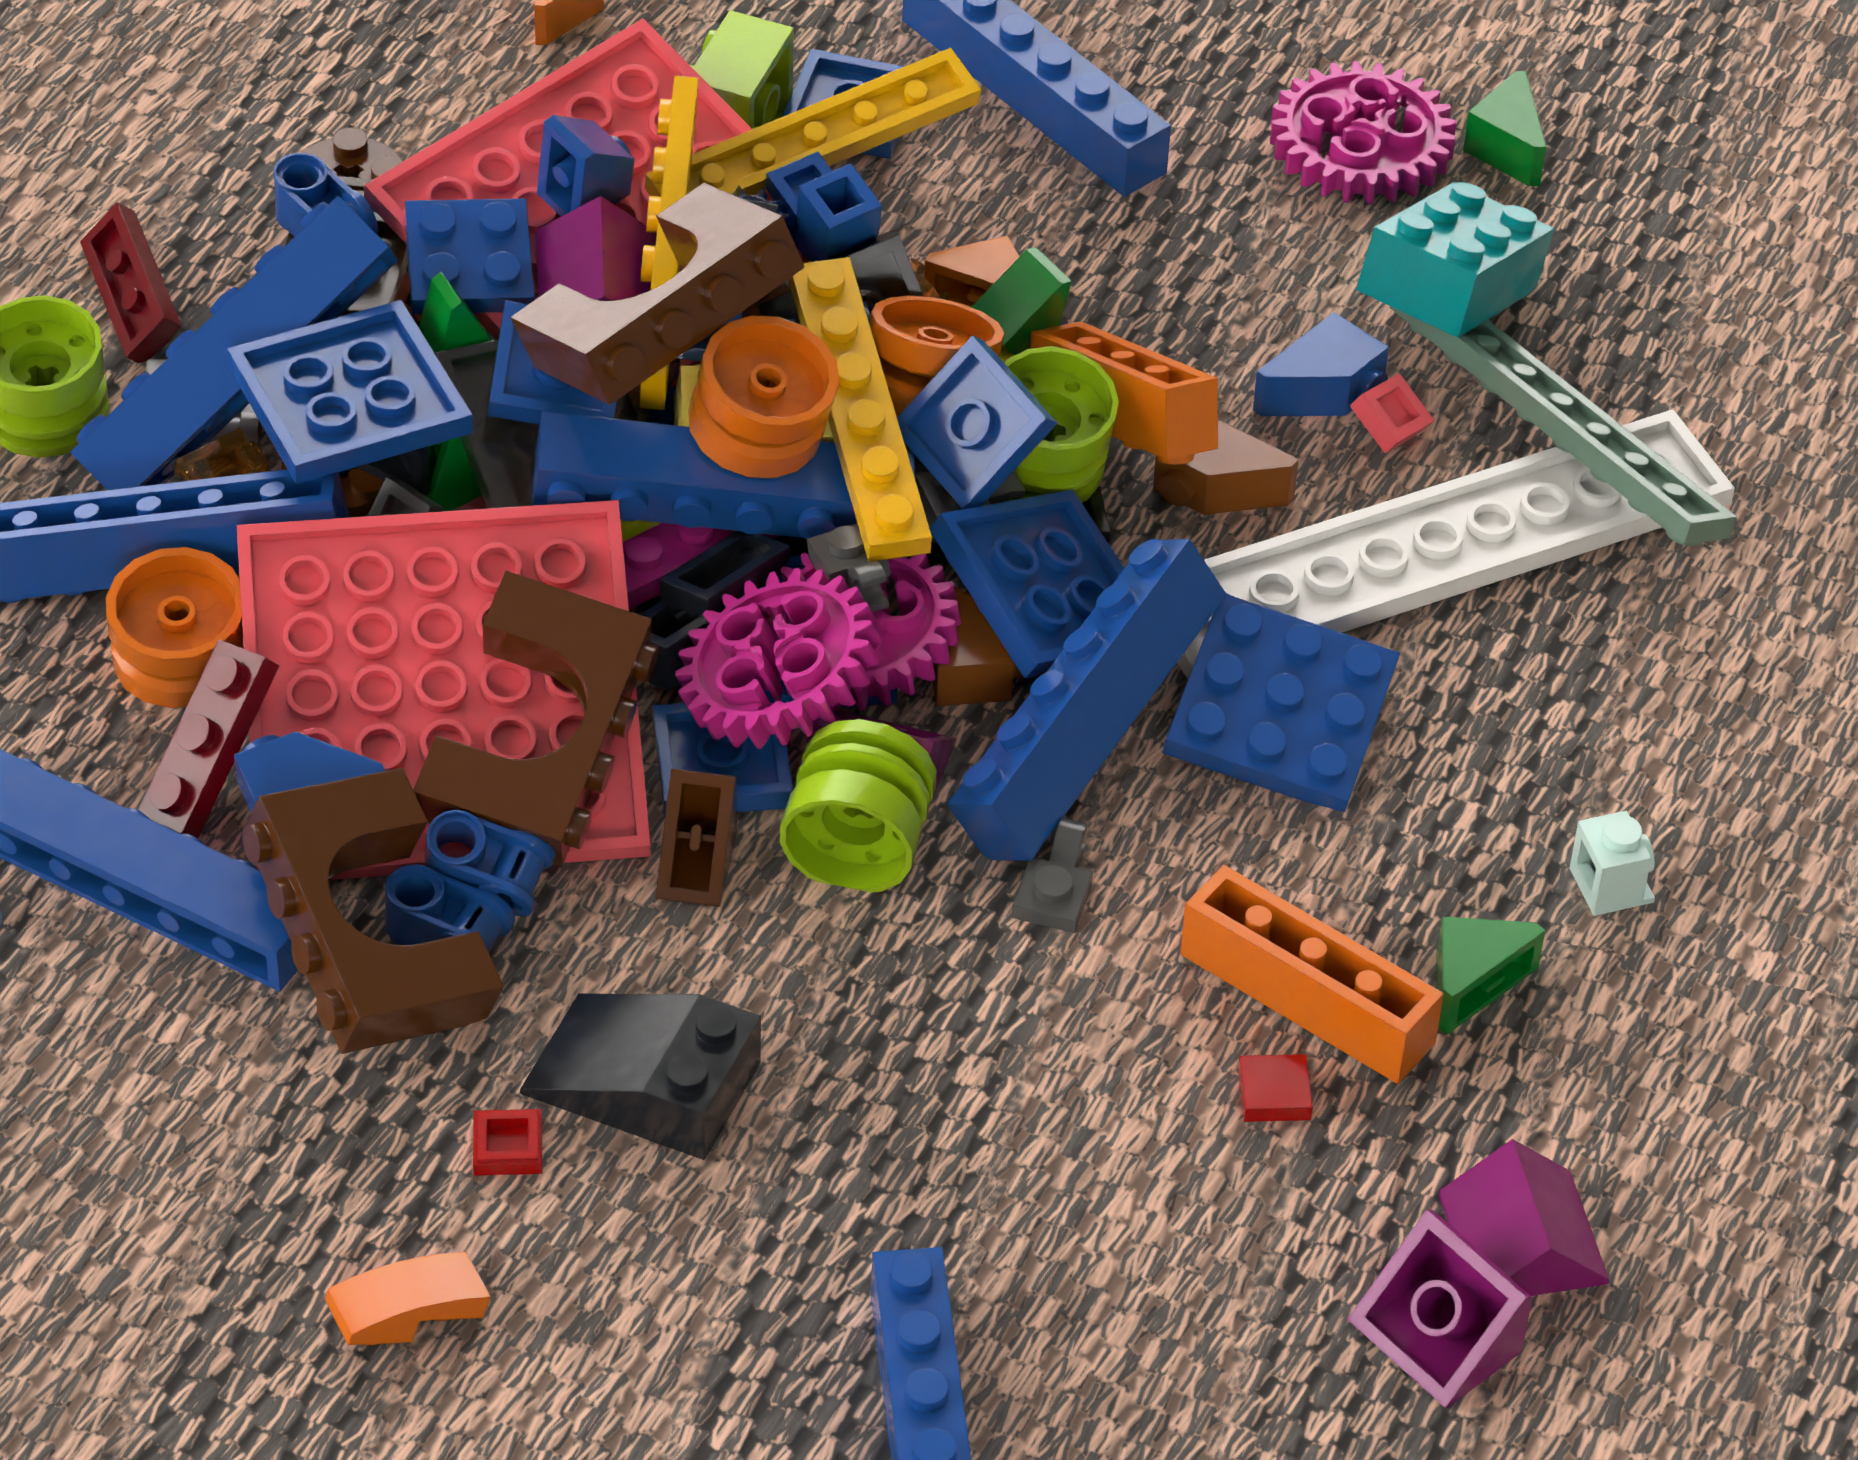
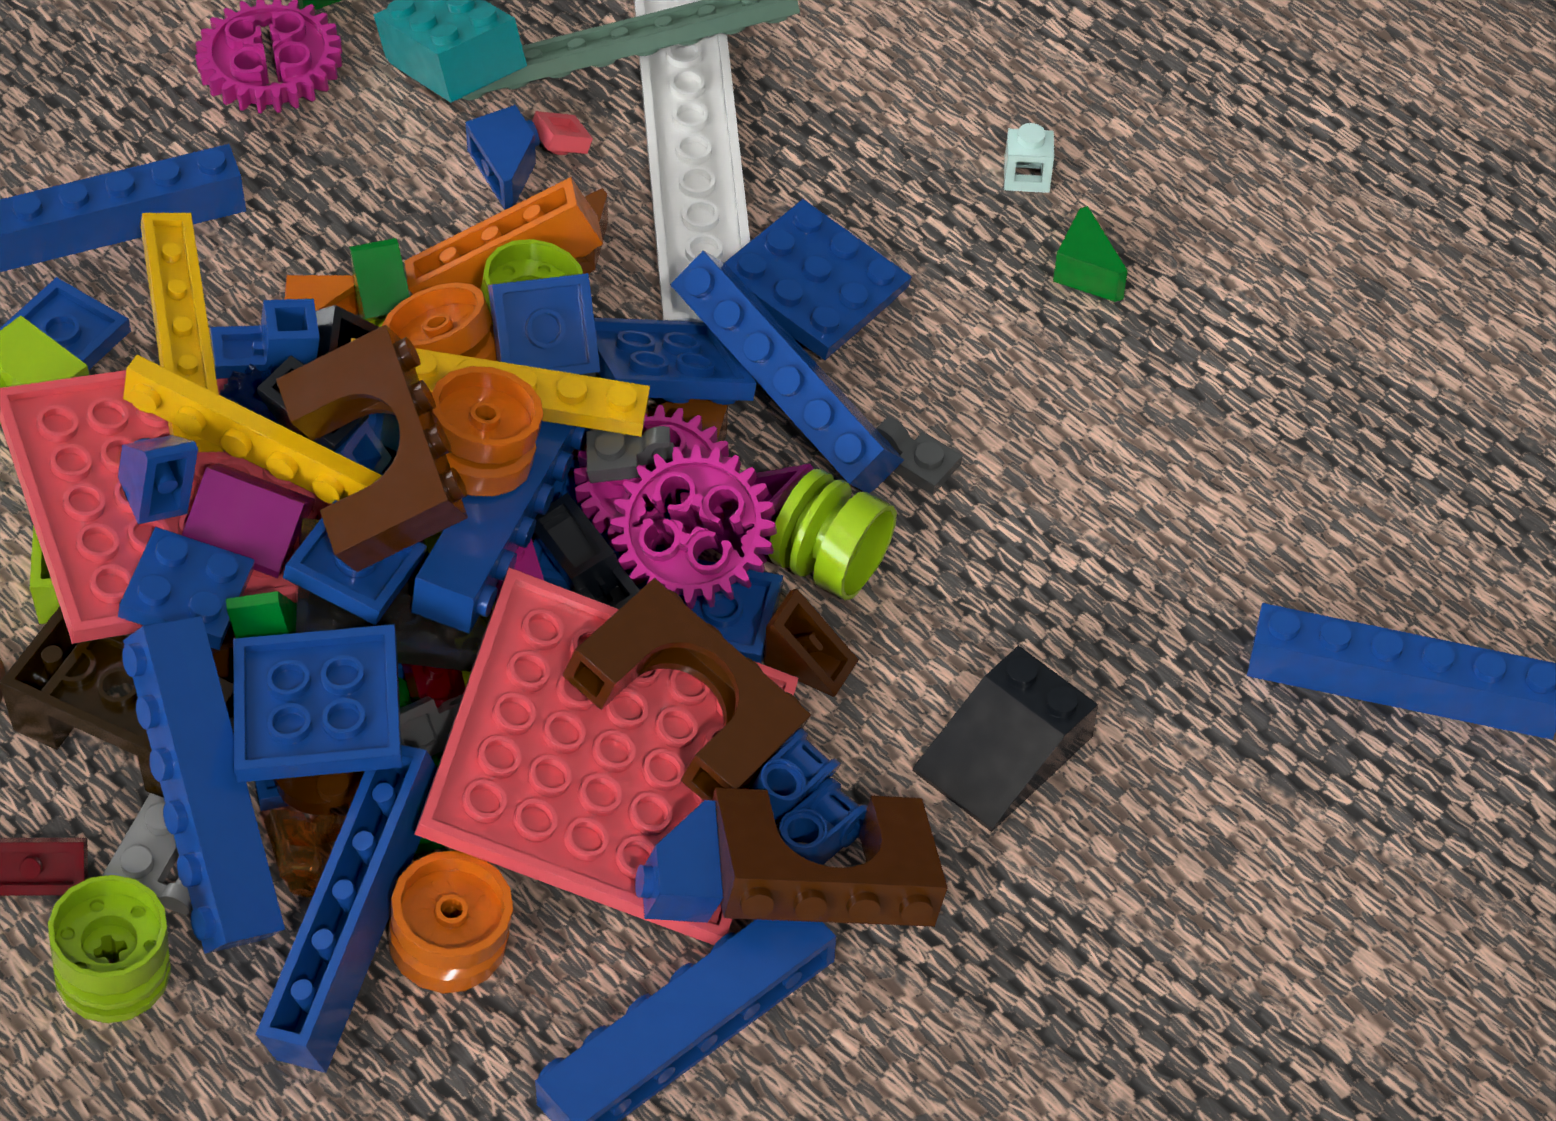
camera: 70 degrees left, 5 degrees up
(208, 738) = (594, 926): plate -> none
(306, 181) = (70, 675): blue piece -> none
(394, 1298) = (1178, 946): slope -> none
(507, 1142) = (1040, 849): red tile -> none
(1275, 1088) = (1143, 398): red tile -> none
(1311, 974) = (1072, 339): orange brick -> none
(1444, 1311) = (1370, 367): magenta slope -> none
(1526, 1220) = (1306, 317): magenta slope -> none

